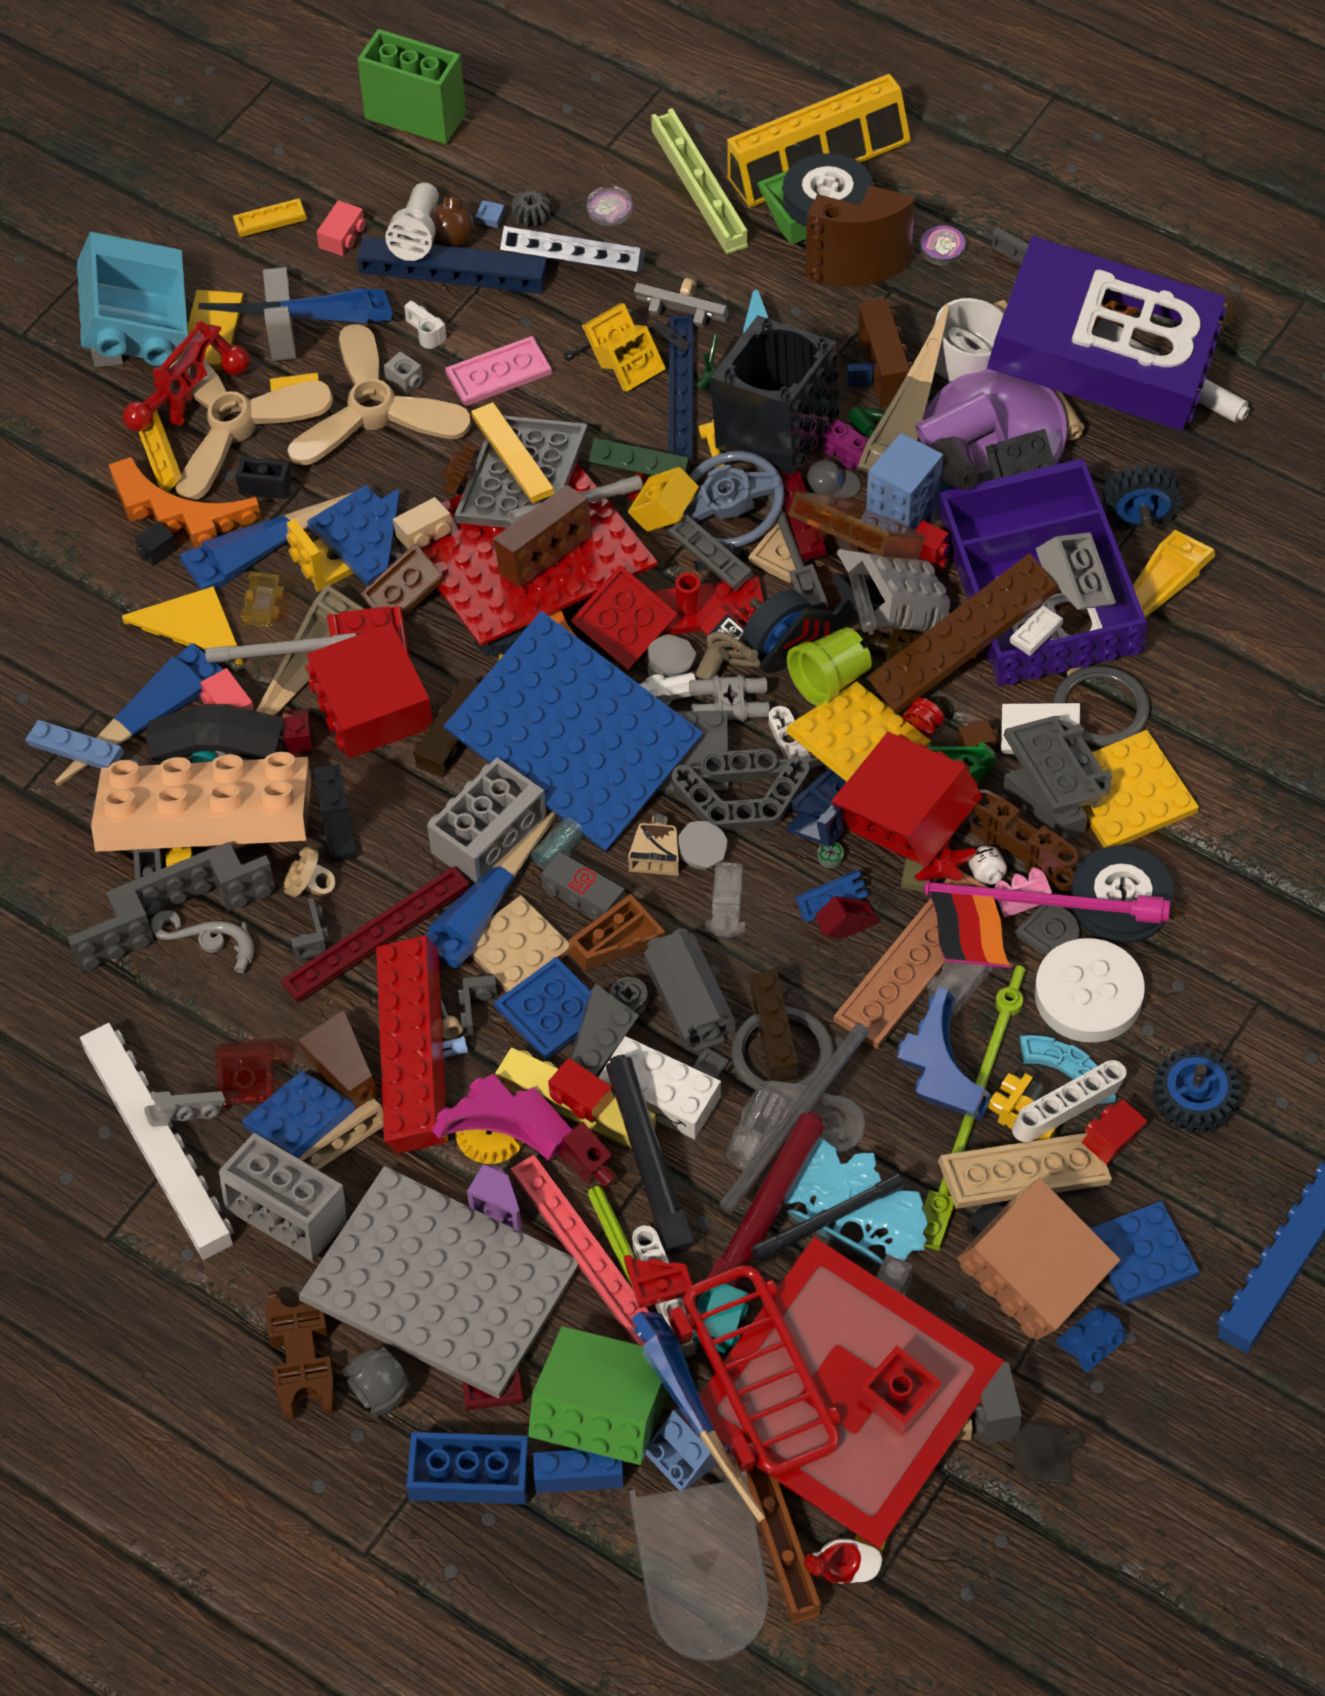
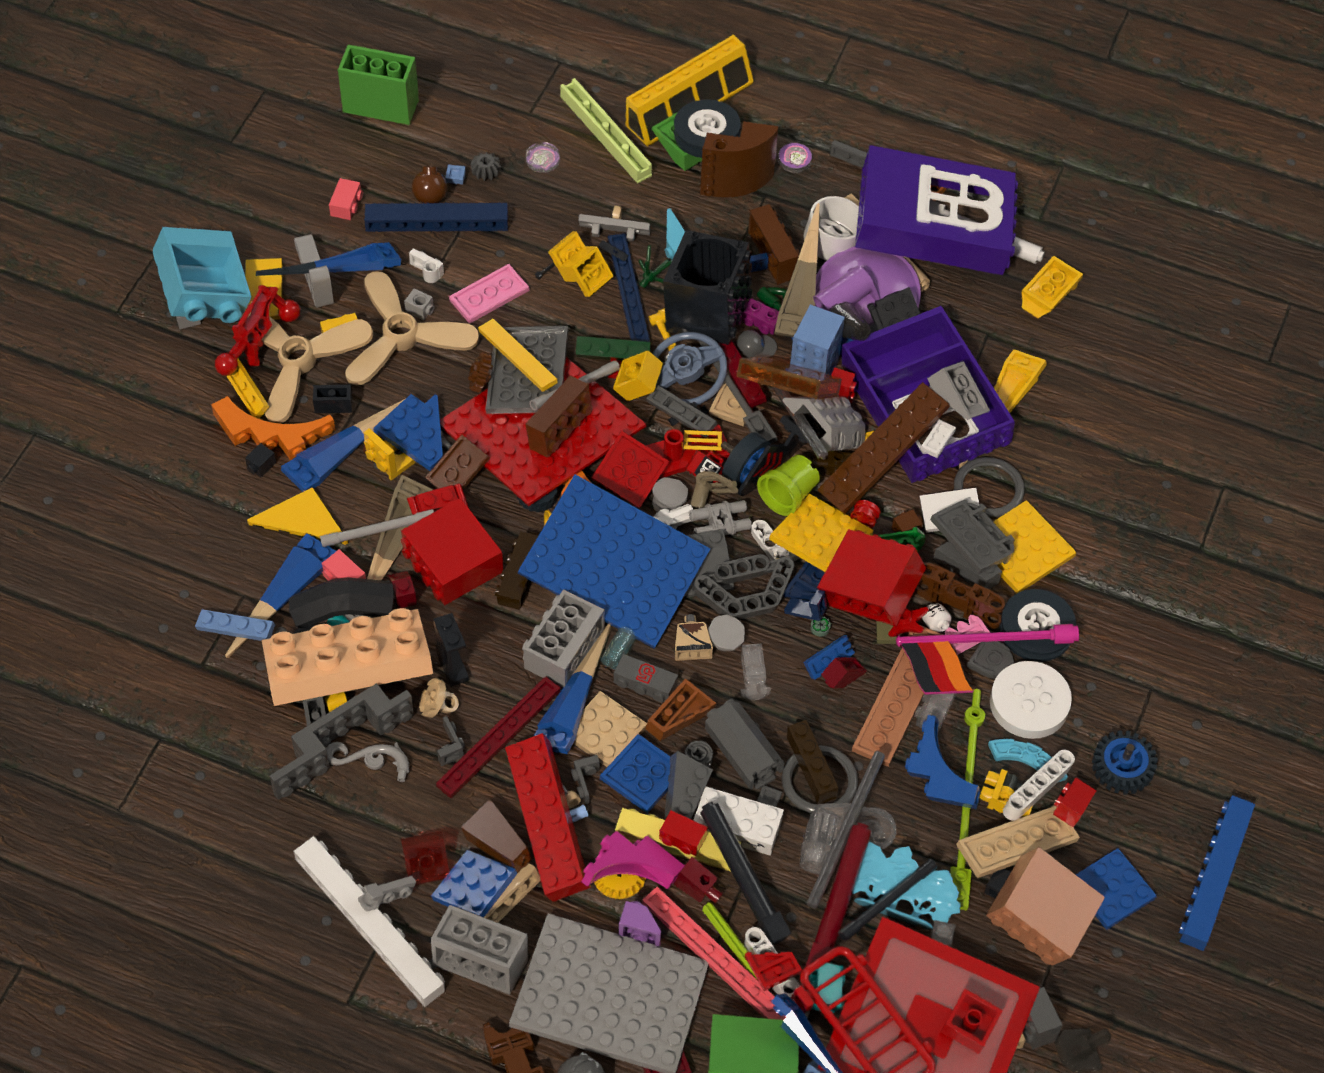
camera: 15 degrees left, 0 degrees up
(261, 599) = (352, 492): clear yellow window -> none
(269, 217) = (288, 197): yellow plate -> none
(412, 228) = (404, 194): white piece -> none
(423, 523) = (463, 418): tan piece -> none
(572, 249) = (525, 194): brick -> none
(708, 580) = (718, 441): none -> yellow tile
(1093, 1338) = (1093, 957): blue bracket -> none
(1142, 496) = (987, 328): black wheel -> none
(1245, 455) = (1049, 287): none -> yellow slope

